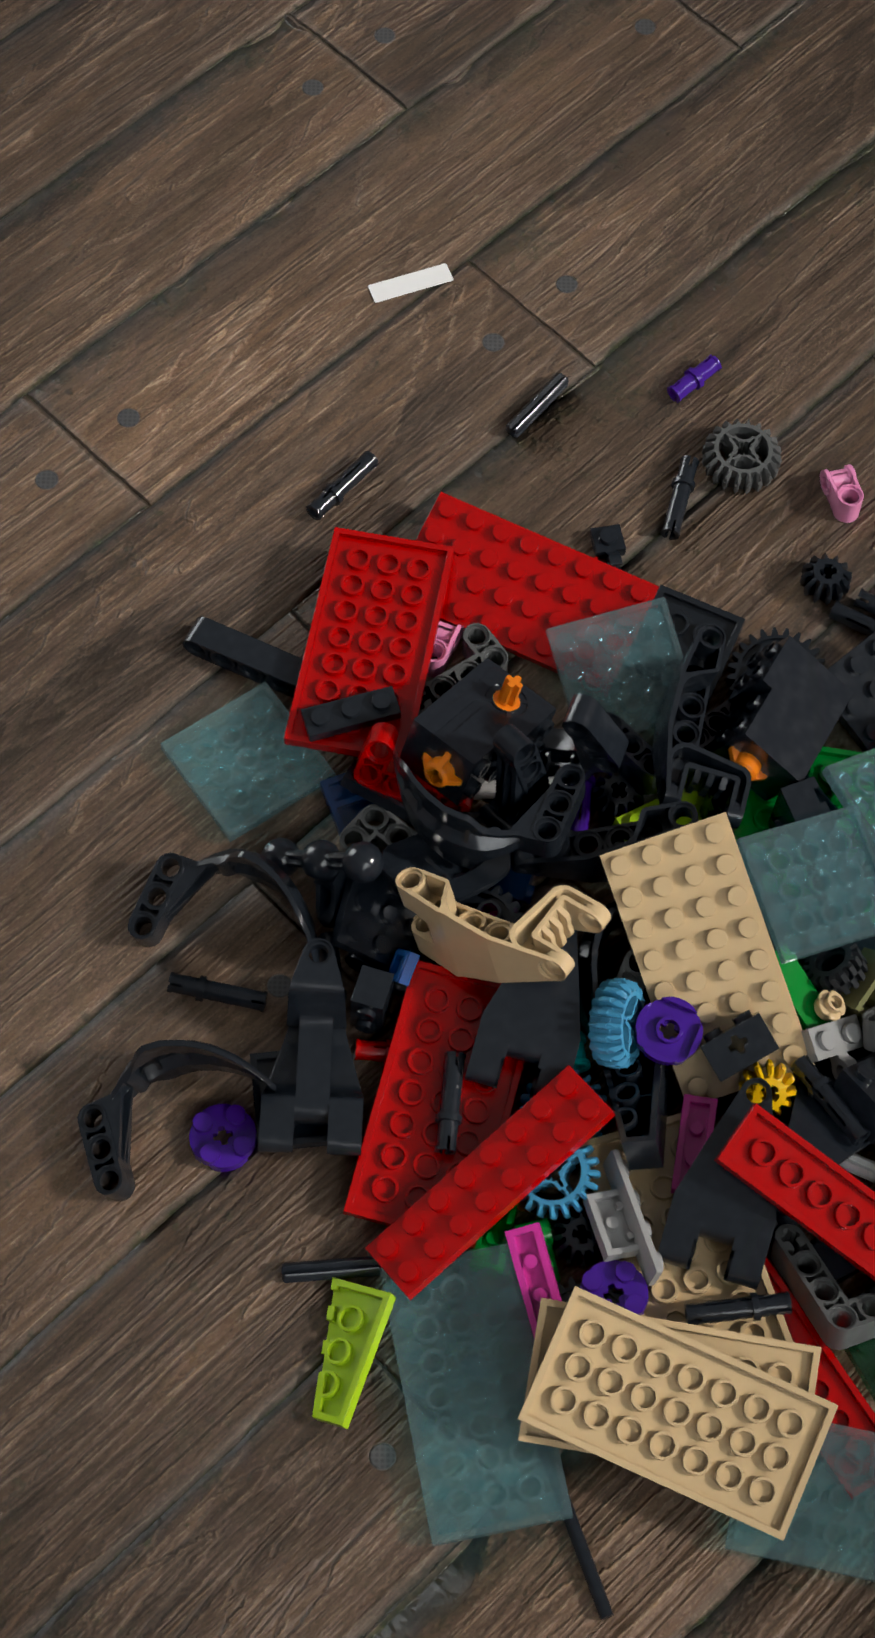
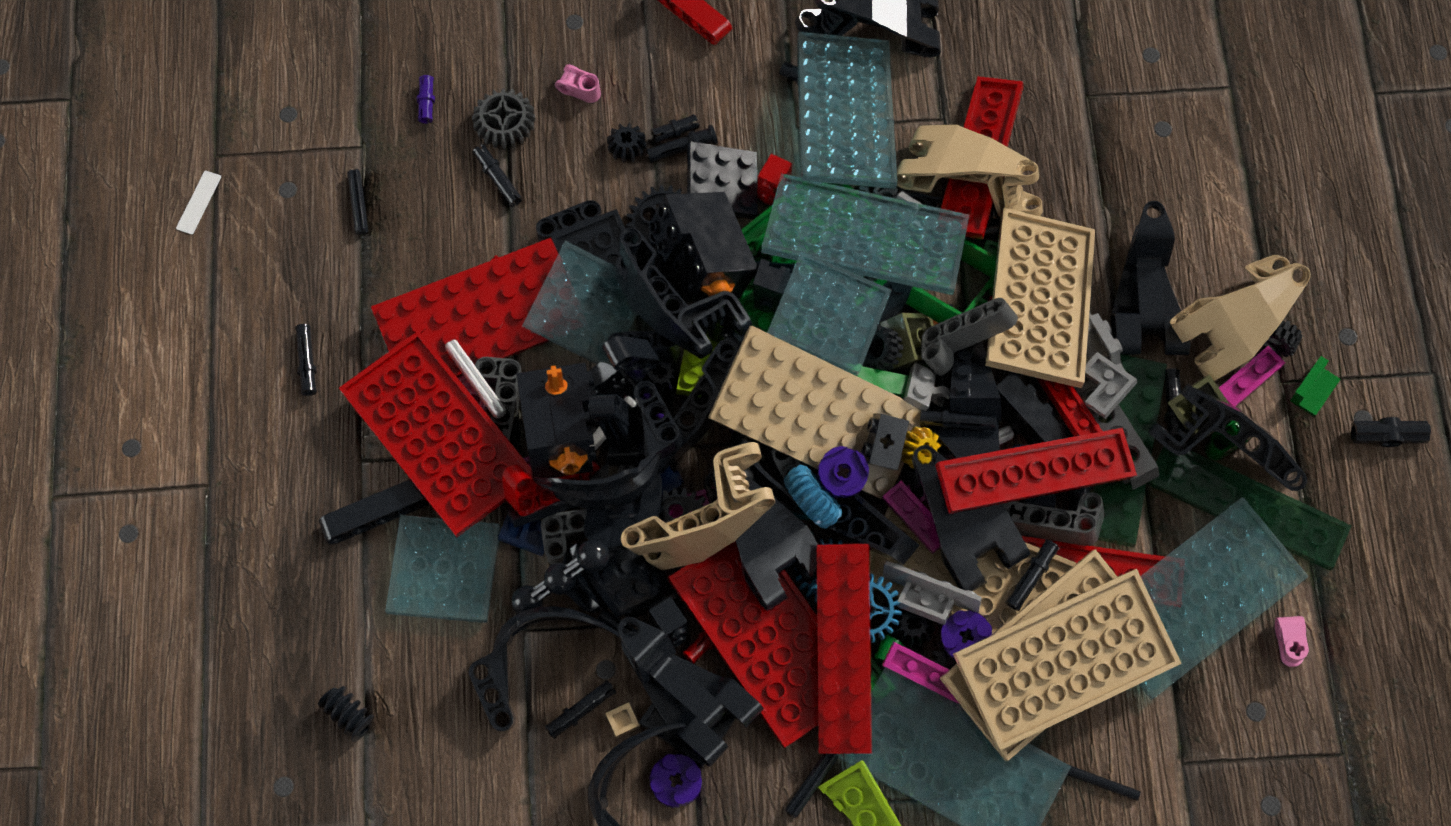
camera: 45 degrees left, 5 degrees up
(33, 788) = (346, 712): none -> black piece
(240, 1038) = (622, 720): none -> tan plate
(350, 713) = (476, 482): black plate -> none
(403, 966) = (666, 587): blue tile -> none
(448, 1116) = (775, 631): black pin -> none
(454, 635) = (475, 379): none -> white axle
(608, 544) = (491, 241): black plate -> none
(692, 584) = (574, 214): none -> black beam
(829, 1005) = (900, 371): tan plate -> none

